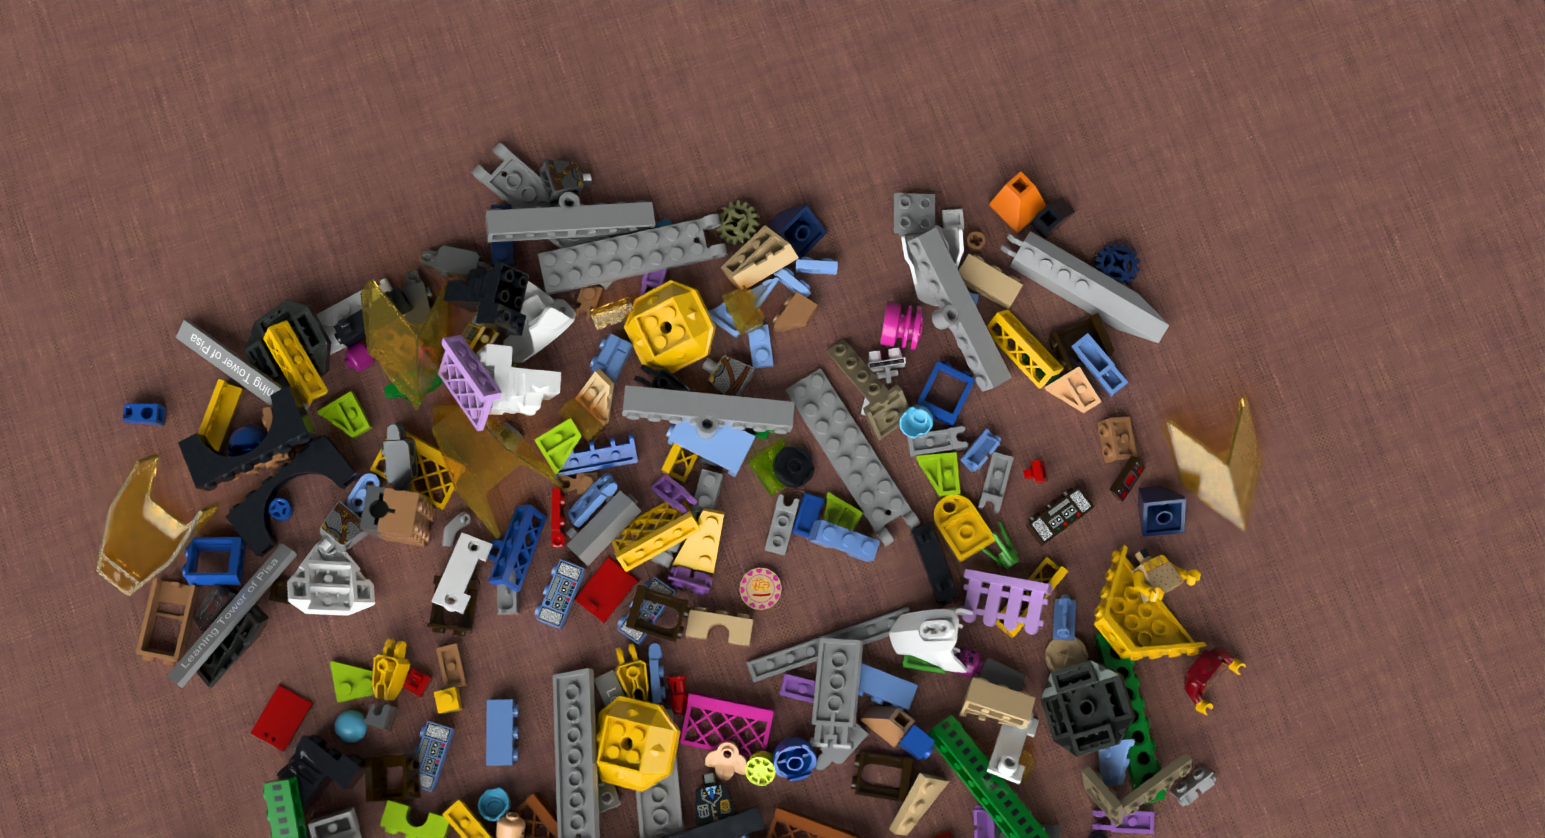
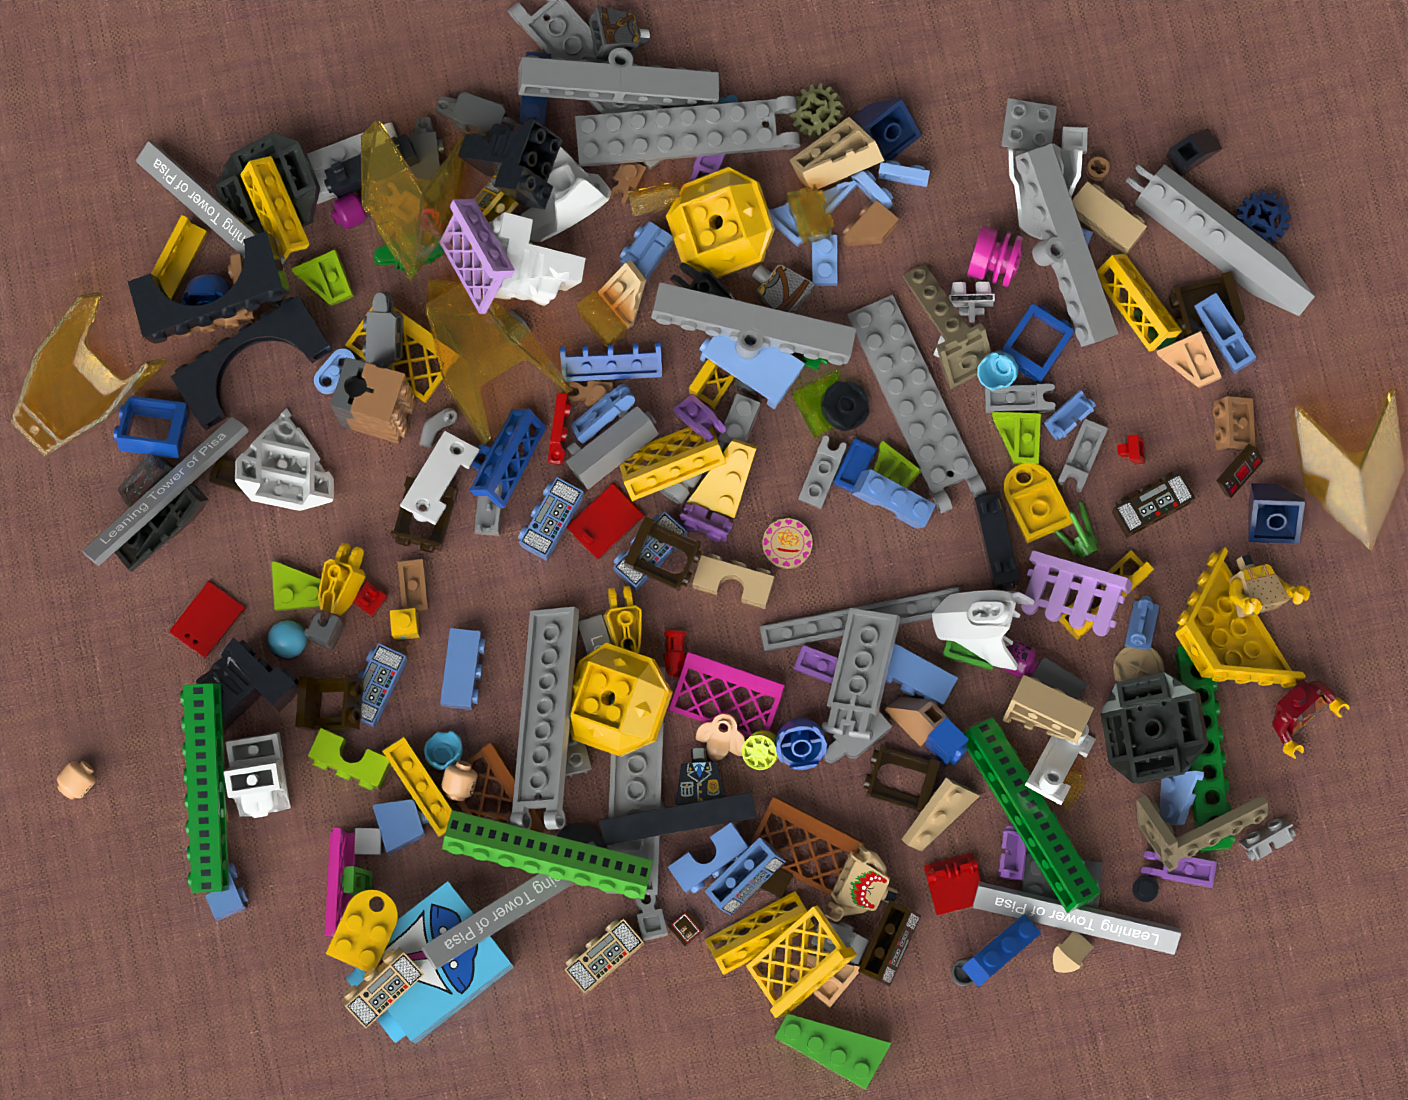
camera: 10 degrees right, 0 degrees up
(144, 414) = (88, 245): blue leg -> none
(173, 593) = (96, 458): medium nougat door -> none
(276, 509) = (232, 373): blue wheel -> none
(340, 529) = (304, 409): torso -> none
(559, 443) = (572, 341): lime wing -> none
(656, 673) = (652, 623): medium blue hinge -> none
(1018, 202) = (1154, 128): orange slope -> none

